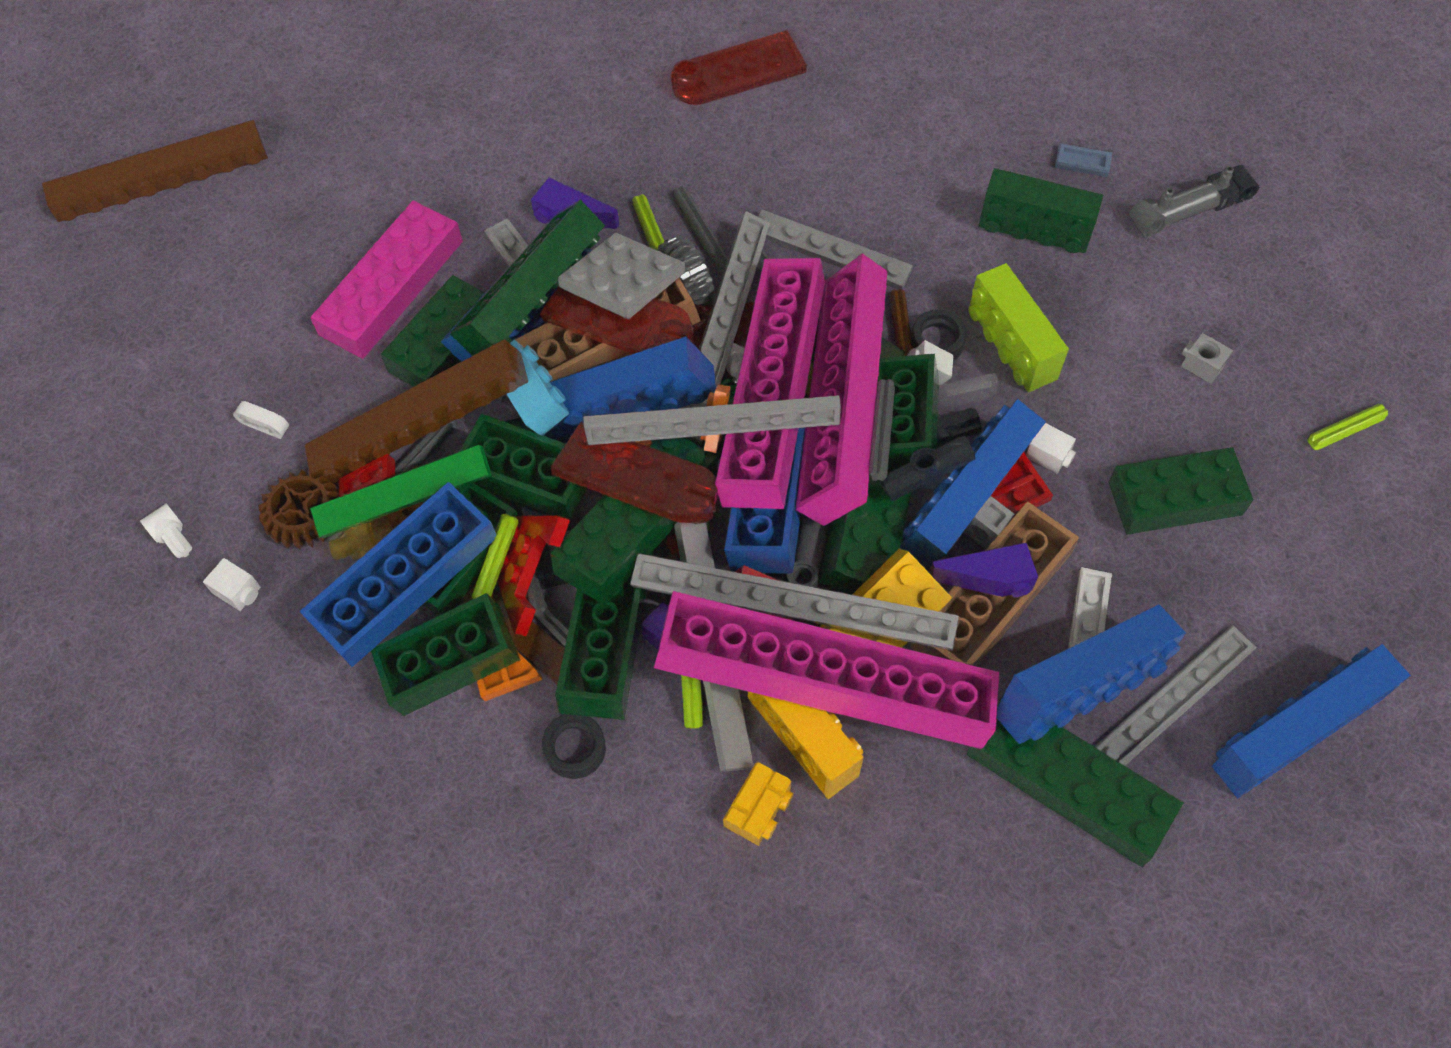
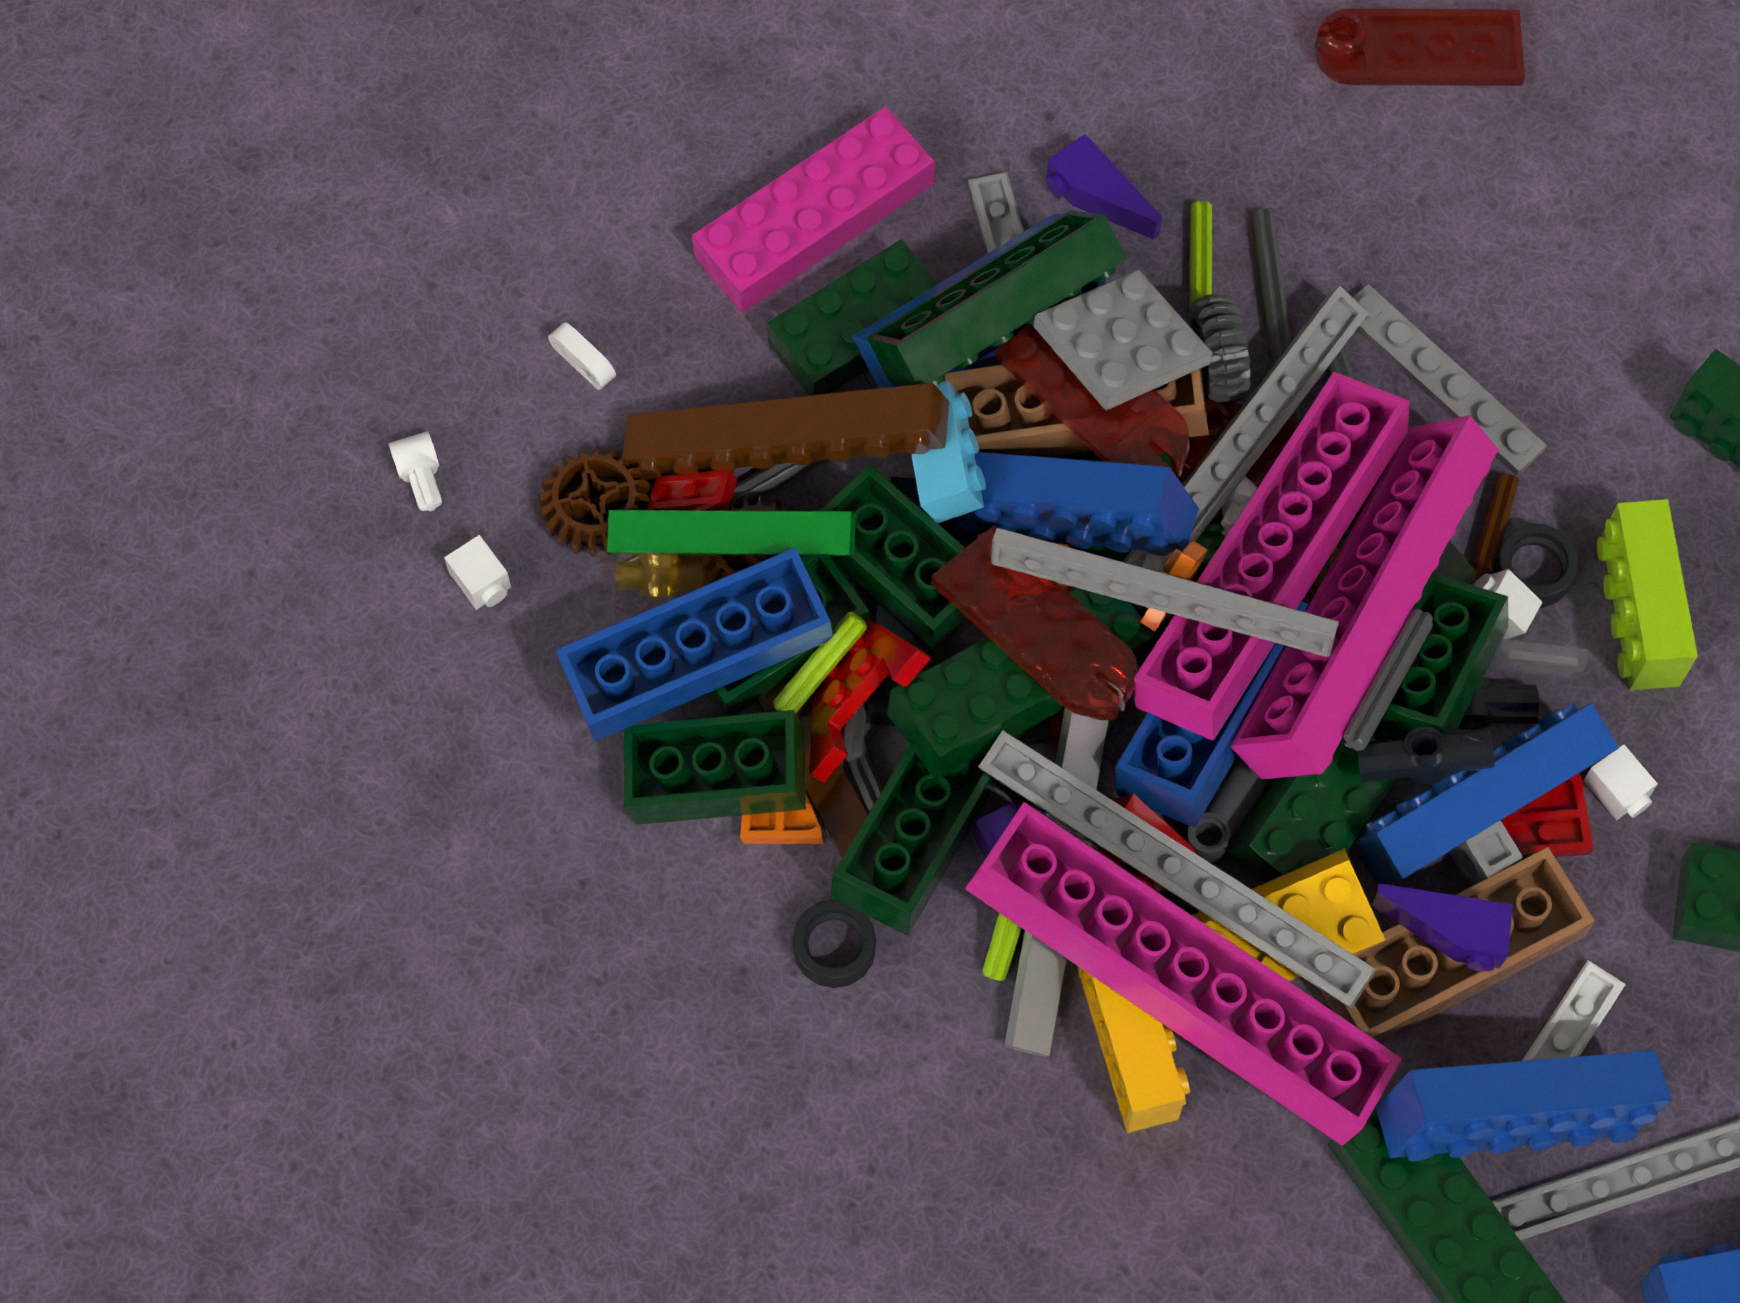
camera: 20 degrees right, 5 degrees up
(758, 804) = (1036, 1105): yellow brick -> none

